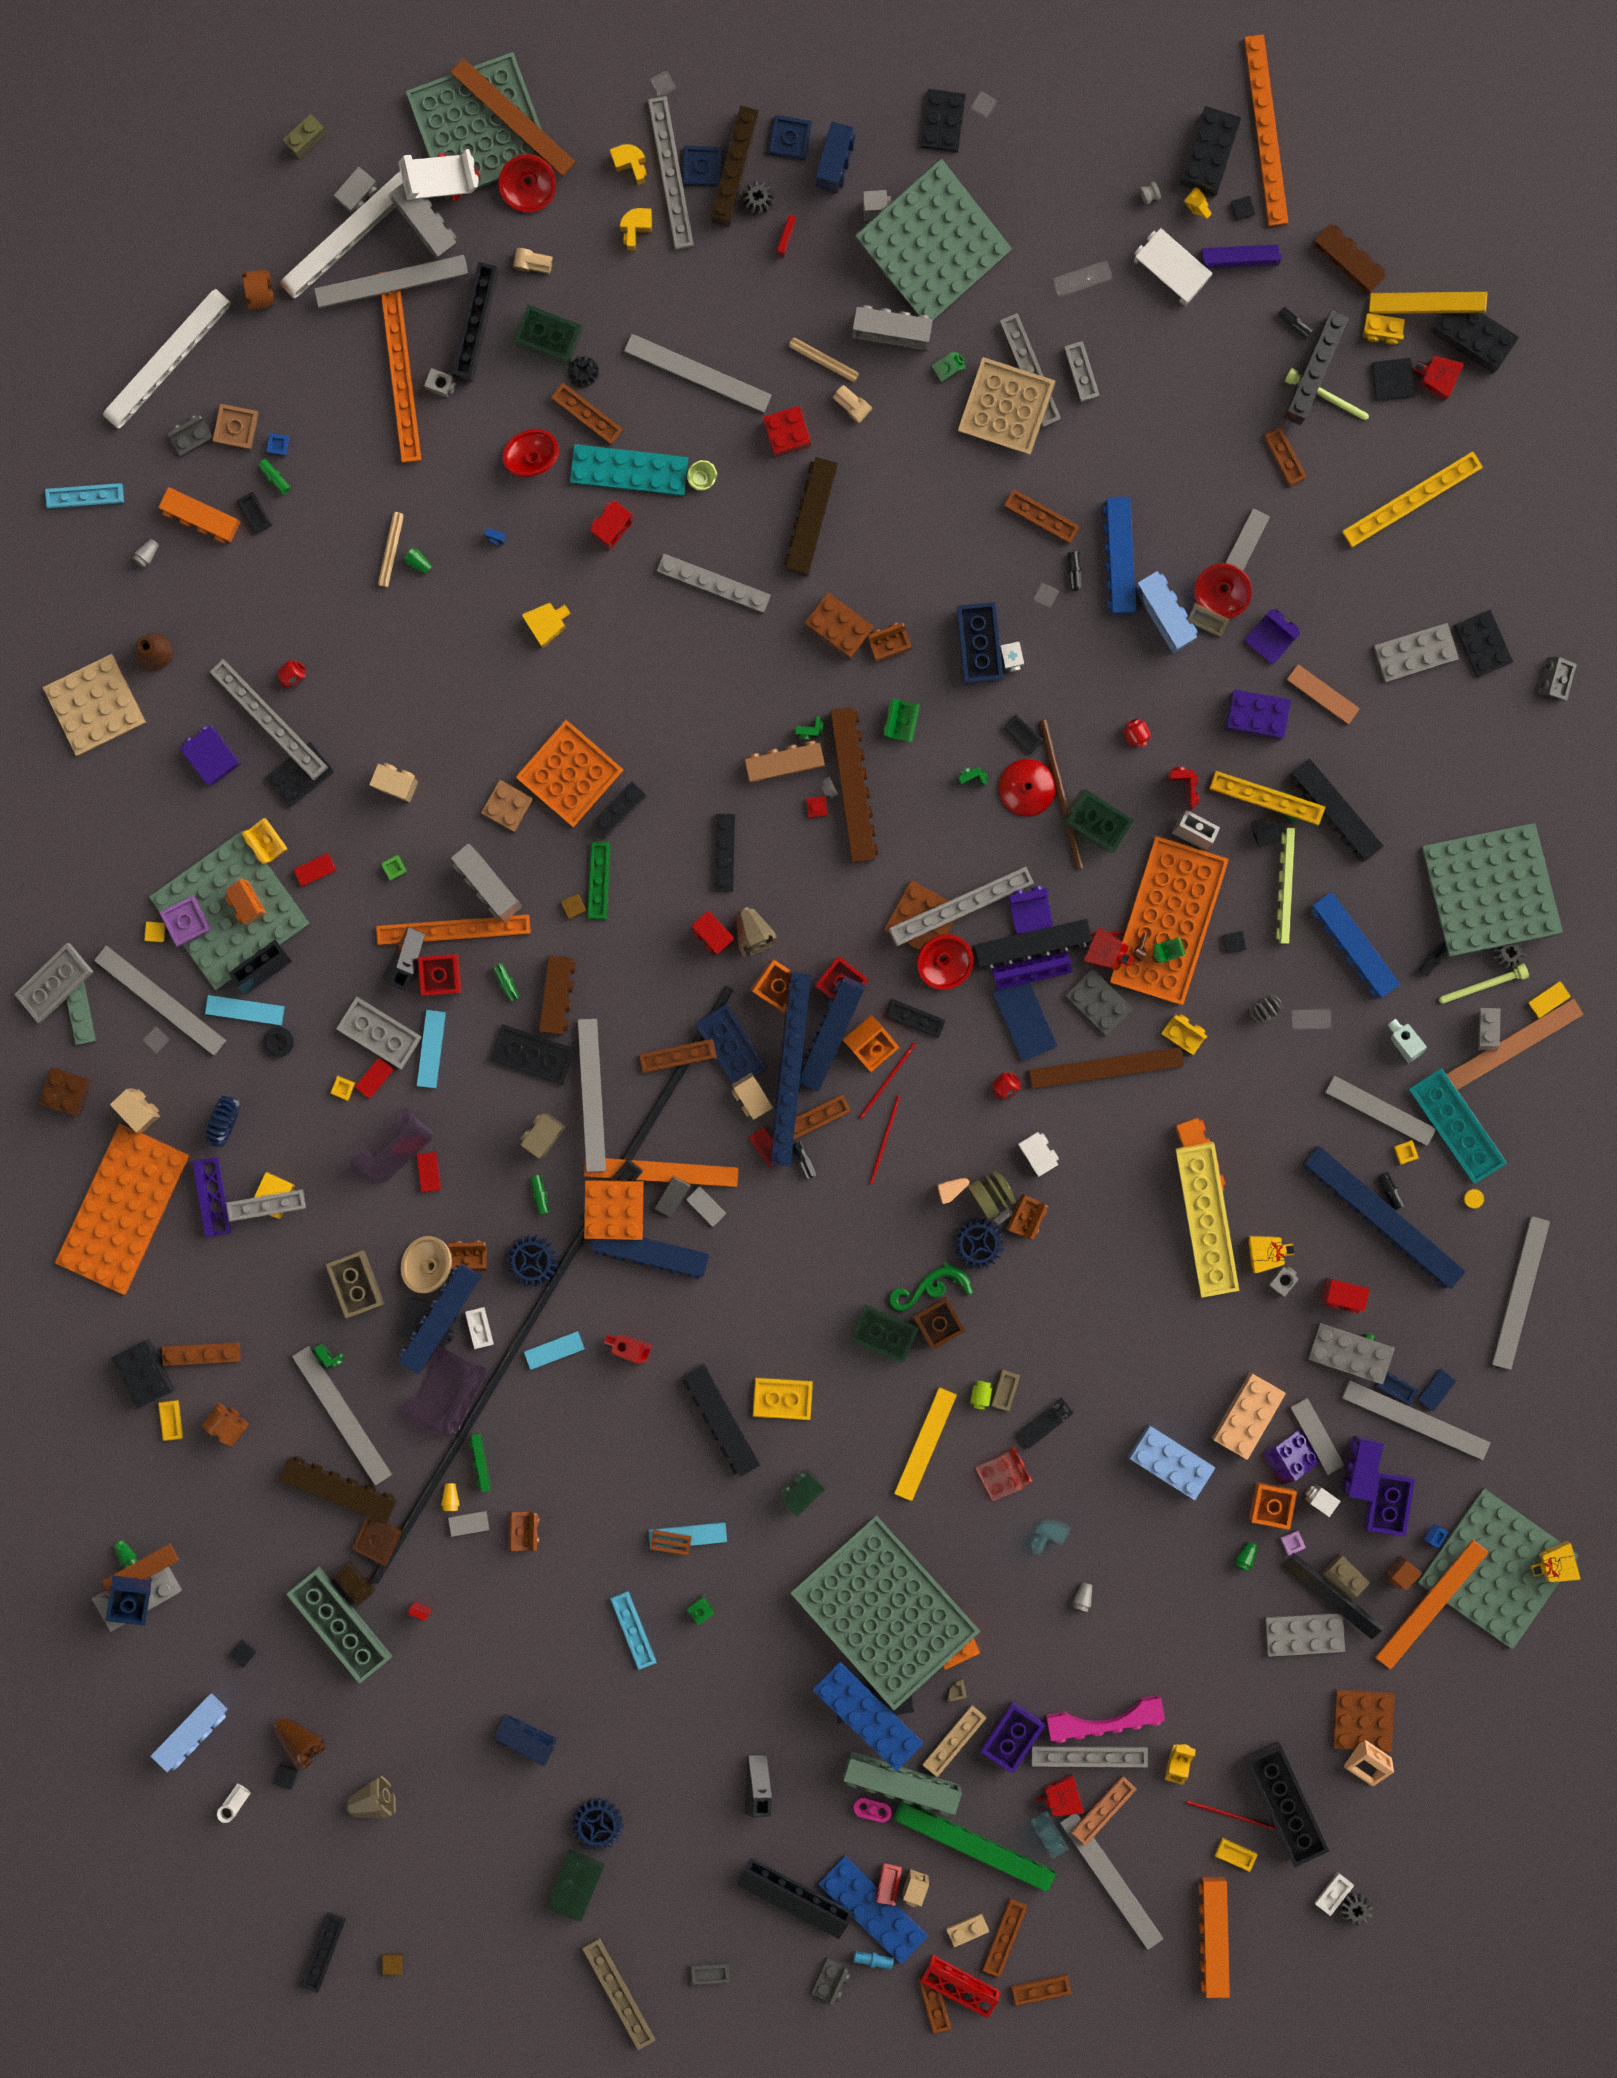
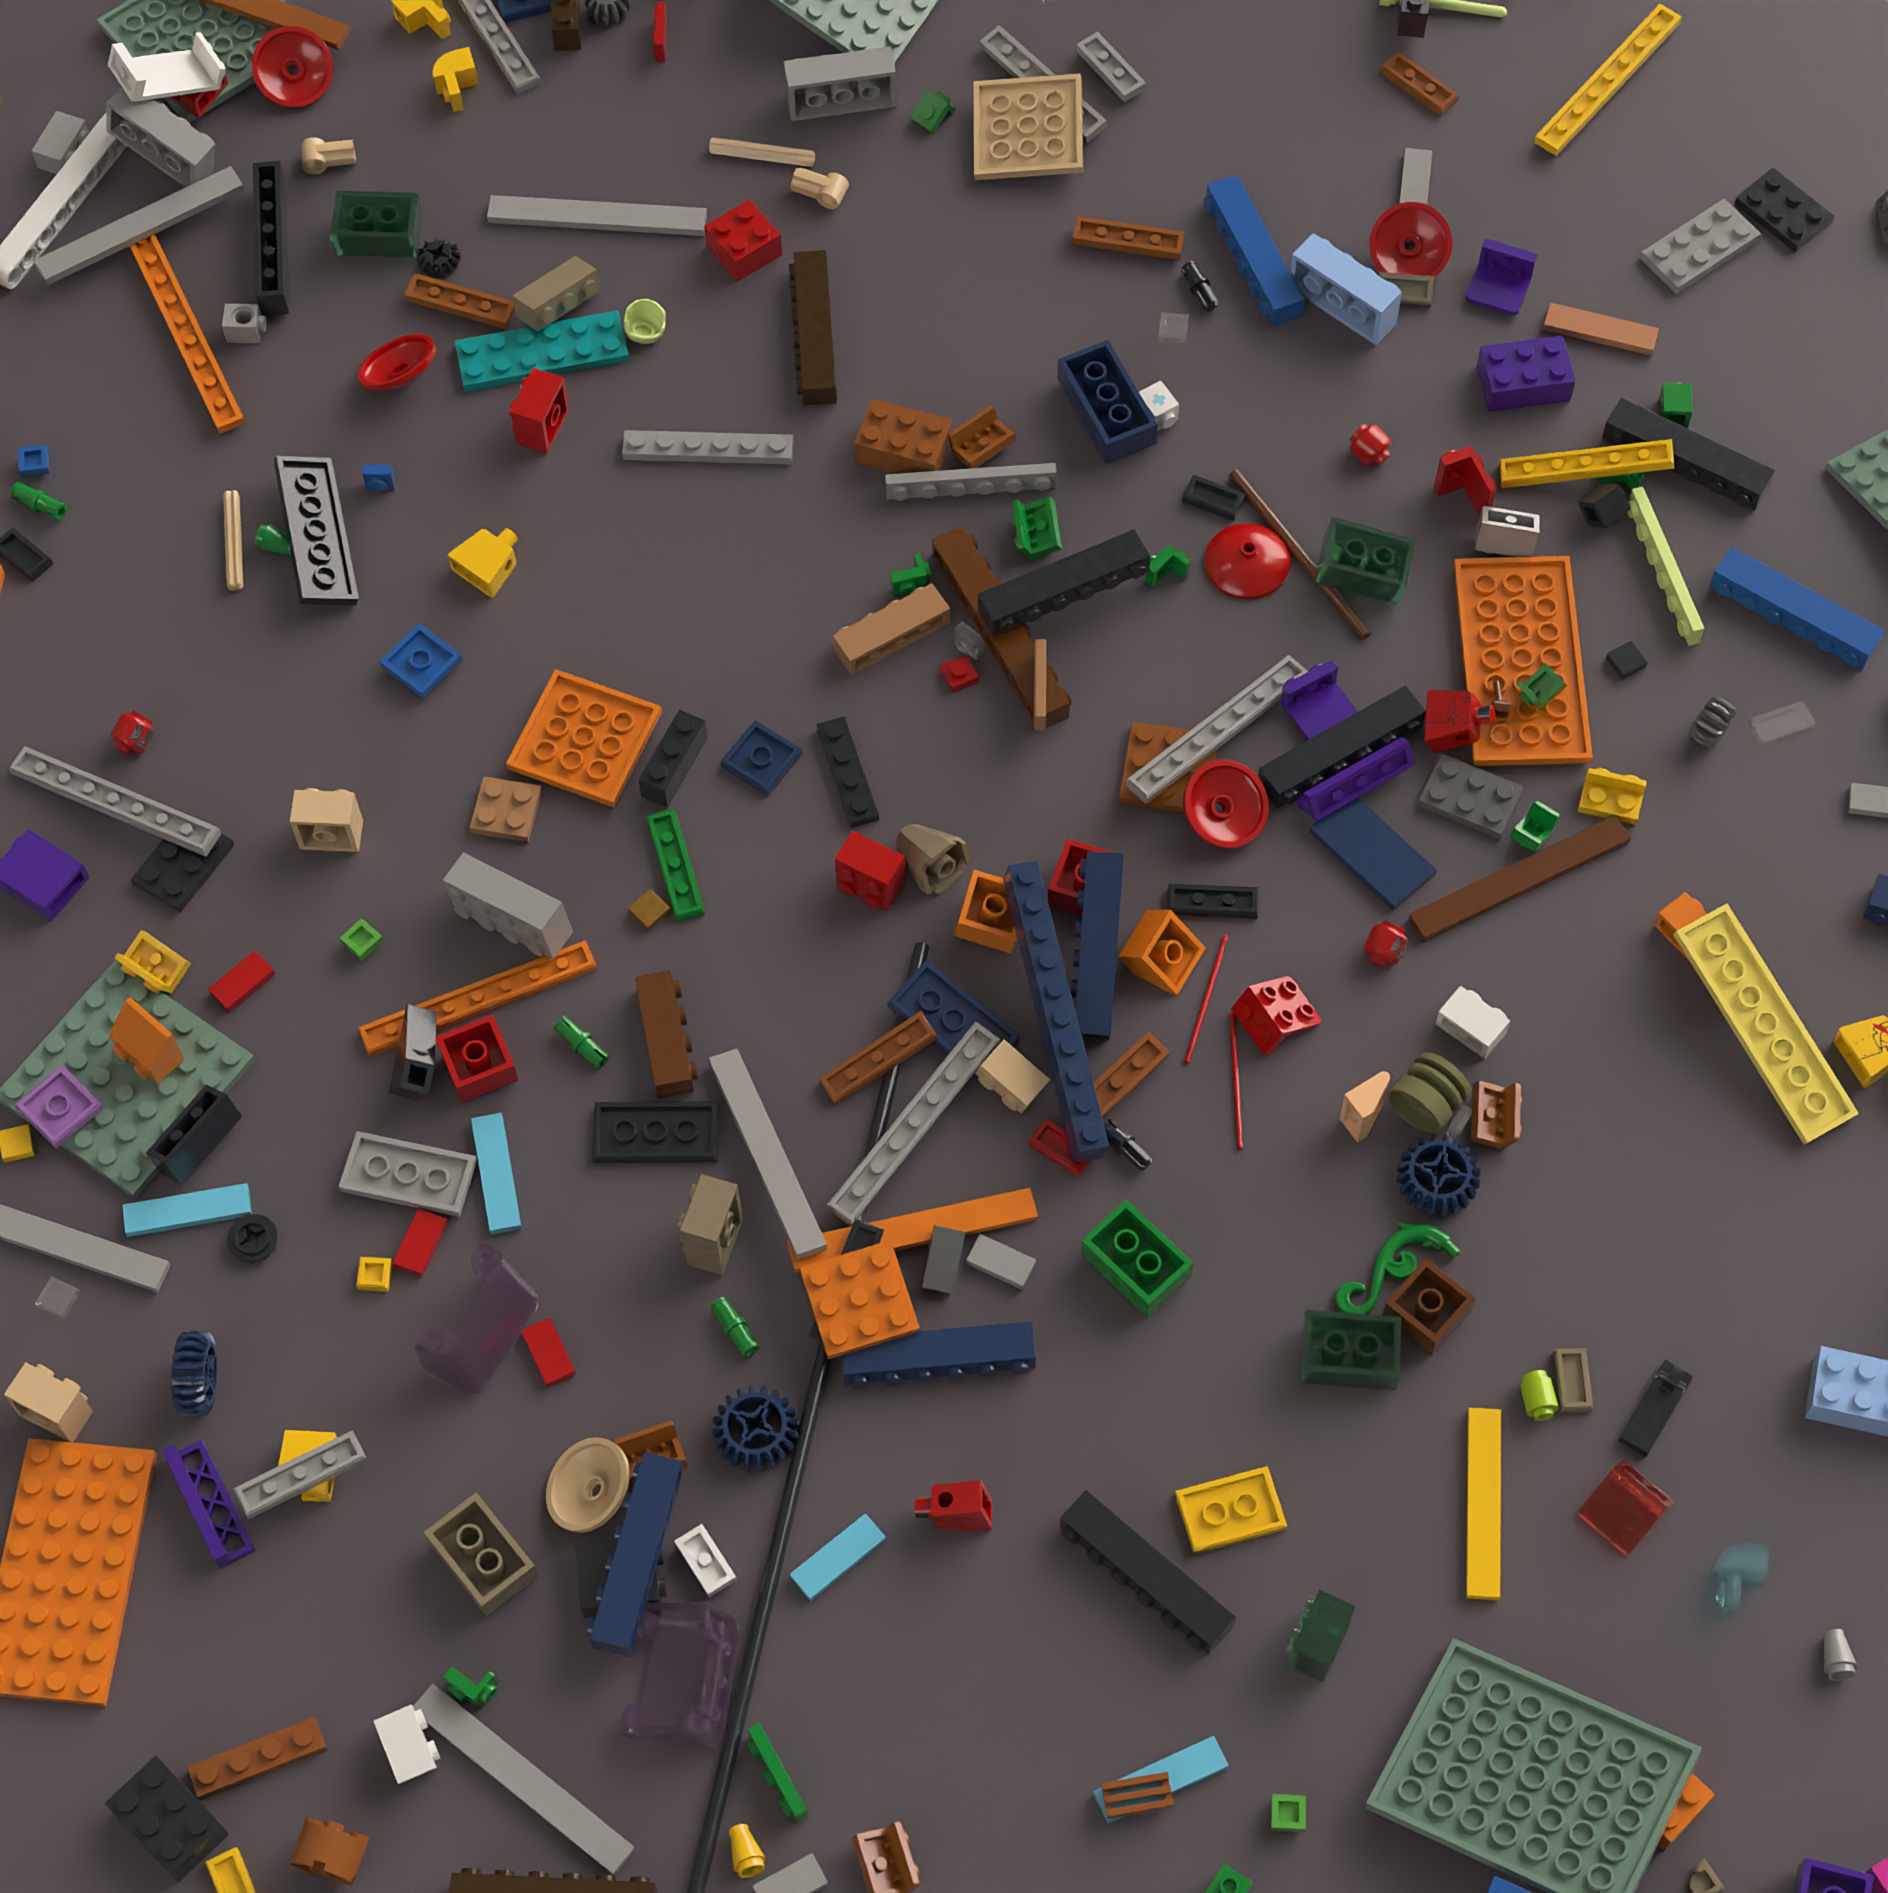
camera: 15 degrees left, 25 degrees down
(283, 1377) = (406, 1743): none -> white brick
(444, 564) = (315, 531): none -> plate
(484, 682) = (421, 660): none -> blue plate
(650, 434) = (556, 293): none -> dark tan brick
(675, 824) = (761, 758): none -> dark blue tile
(684, 1105) = (912, 1124): none -> light grey tile
(749, 1578) = (1288, 1813): none -> bright green plate
(783, 1236) = (1136, 1258): none -> green brick
(859, 844) = (1040, 685): none -> medium nougat tile
(879, 674) = (971, 481): none -> light grey plate
(901, 775) = (1063, 582): none -> black brick
(924, 1106) = (1274, 1011): none -> red bracket
(1128, 1039) = (1535, 826): none -> green bracket
(1344, 770) = (1676, 403): none -> green brick

